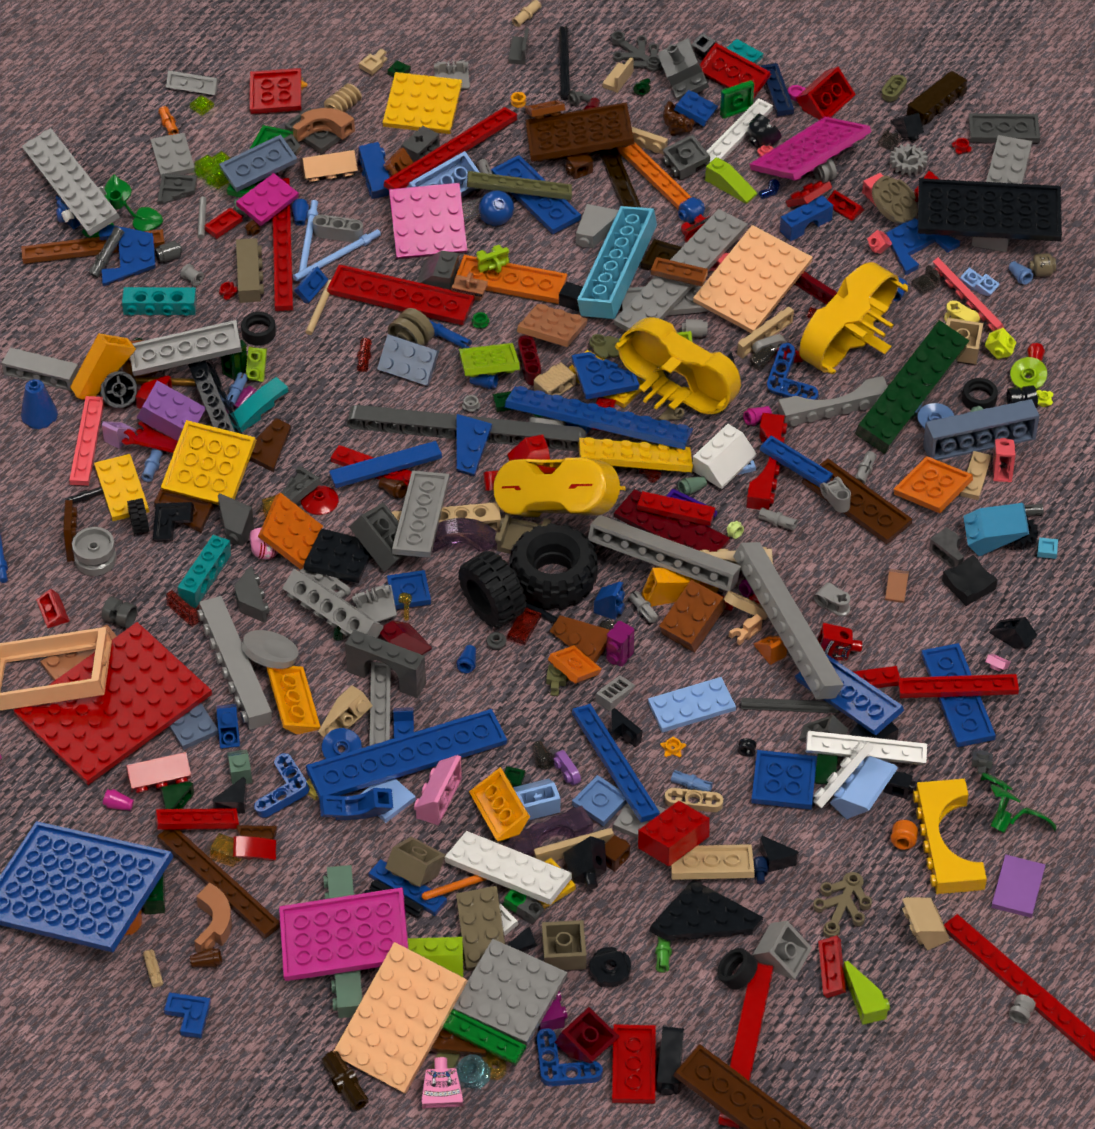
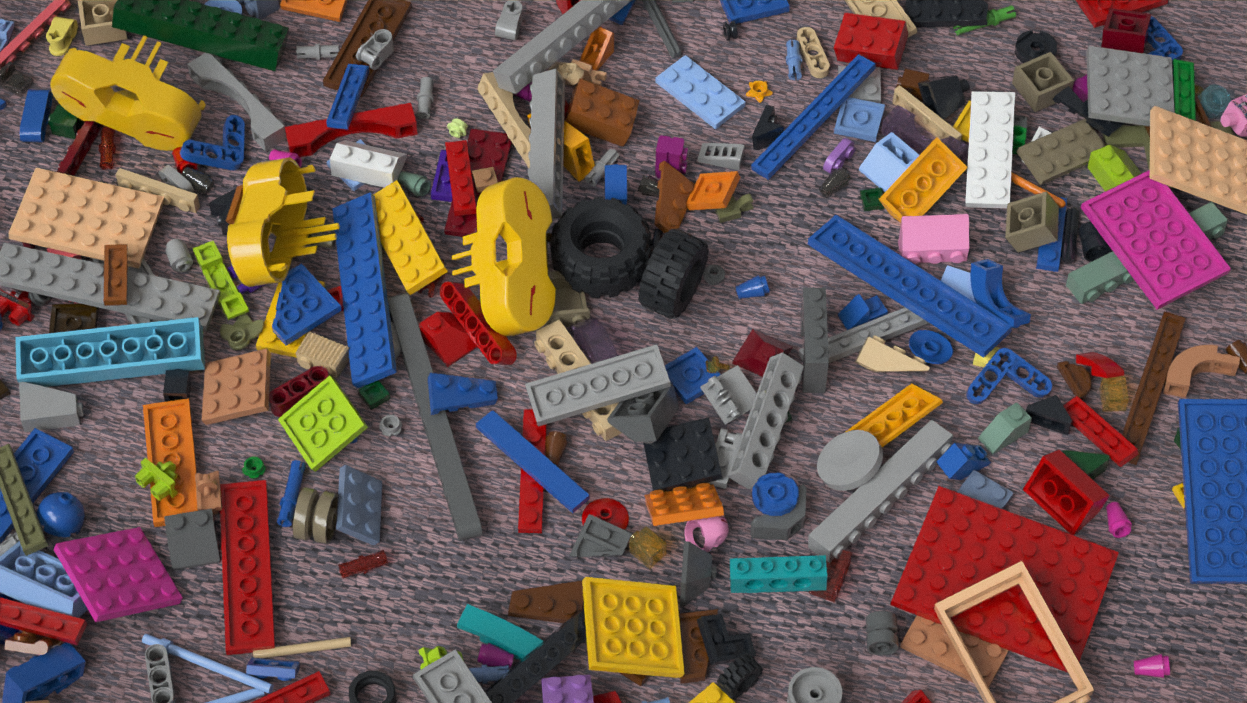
camera: 115 degrees left, 5 degrees up
(265, 587) = (775, 494): none -> blue tile
(666, 523) = (484, 178): none -> medium nougat plate

